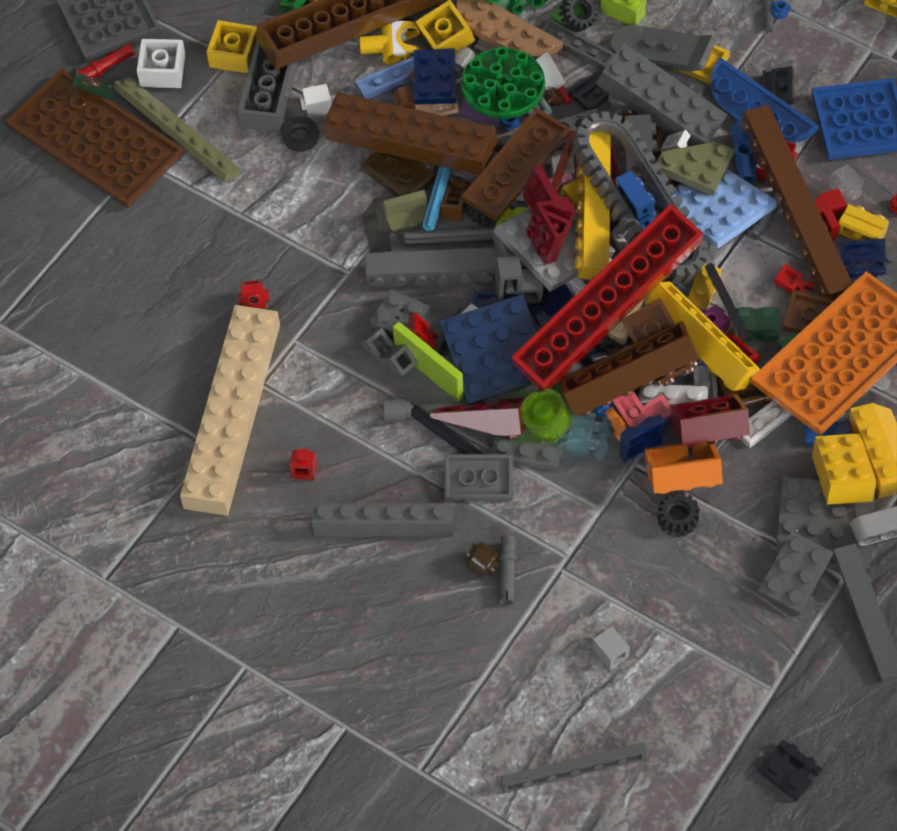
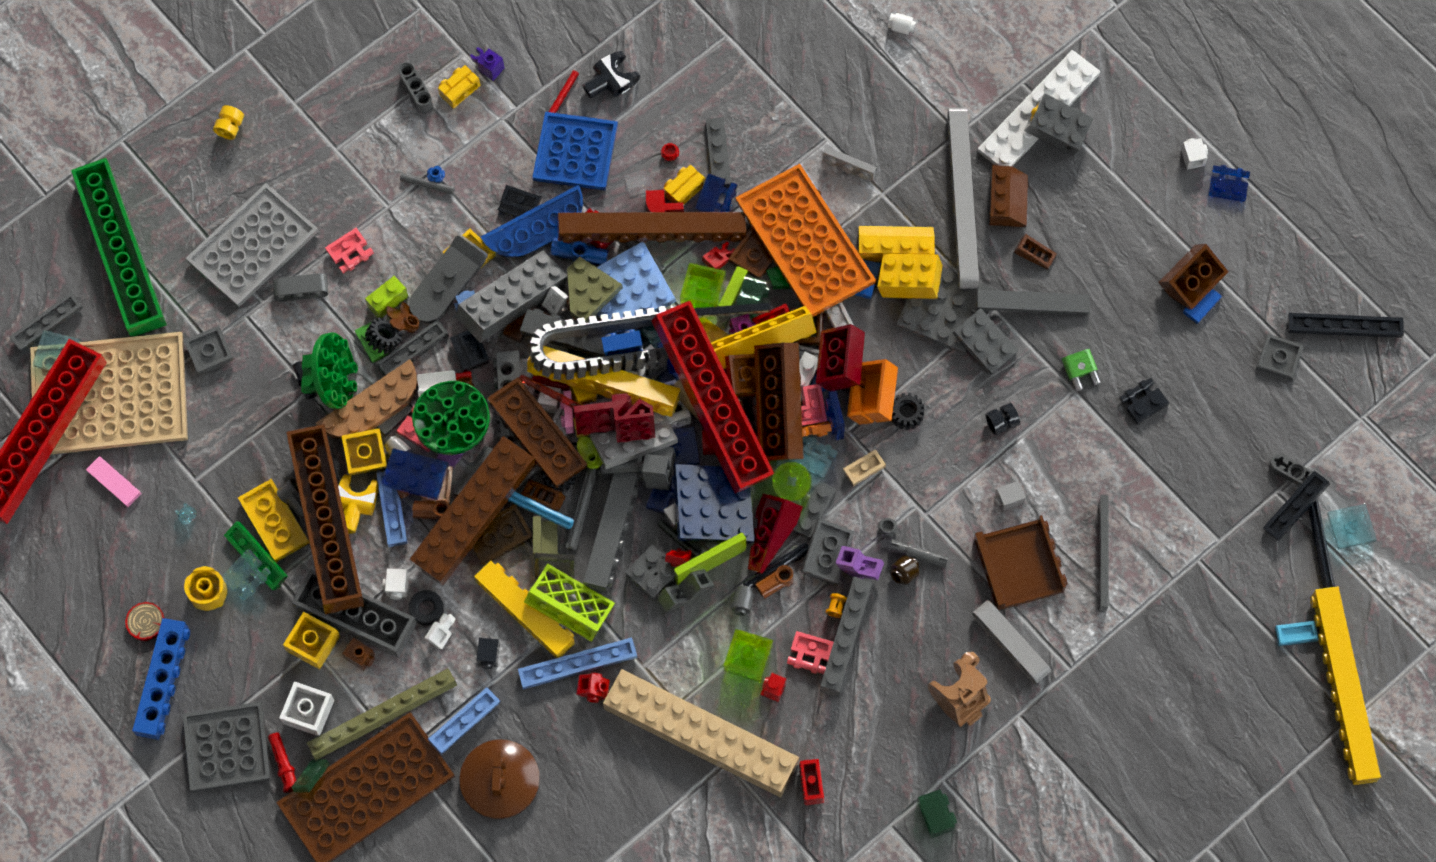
camera: 75 degrees left, 10 degrees up
(134, 245) = (499, 779): none -> reddish brown bracket
(186, 196) = (464, 721): none -> medium blue plate
(201, 664) = (936, 813): none -> clear green brick
(202, 526) = (811, 782): none -> red brick
(231, 90) = (359, 654): none -> reddish brown brick
(265, 197) = (488, 653): none -> black brick
(274, 150) = (439, 632): none -> white plate
(278, 279) = (577, 663): none -> medium blue plate
(321, 216) = (512, 597): none -> yellow brick
(322, 243) = (562, 611): none -> lime fence
(330, 428) = (748, 655): none -> clear neon green brick
(348, 653) = (967, 696): none -> medium nougat animal
(361, 484) = (813, 647): none -> coral plate
(417, 498) = (834, 611): none -> light orange bush
(426, 434) = (774, 583): none -> dark orange piece
(429, 693) = (1011, 642): none -> light grey beam
(472, 507) = (857, 565): none -> medium lavender brick
(529, 531) = (887, 527): none -> dark grey plate
(530, 679) = (1020, 563): none -> reddish brown panel
(593, 488) = (864, 467): none -> tan plate
(606, 22) = (402, 318): none -> reddish brown plate
(707, 617) = (996, 421): none -> black wheel
(746, 272) = (703, 286): none -> clear neon green brick
(758, 302) = (734, 287): none -> lime piece
(807, 684) = (1080, 365): none -> bright green piece

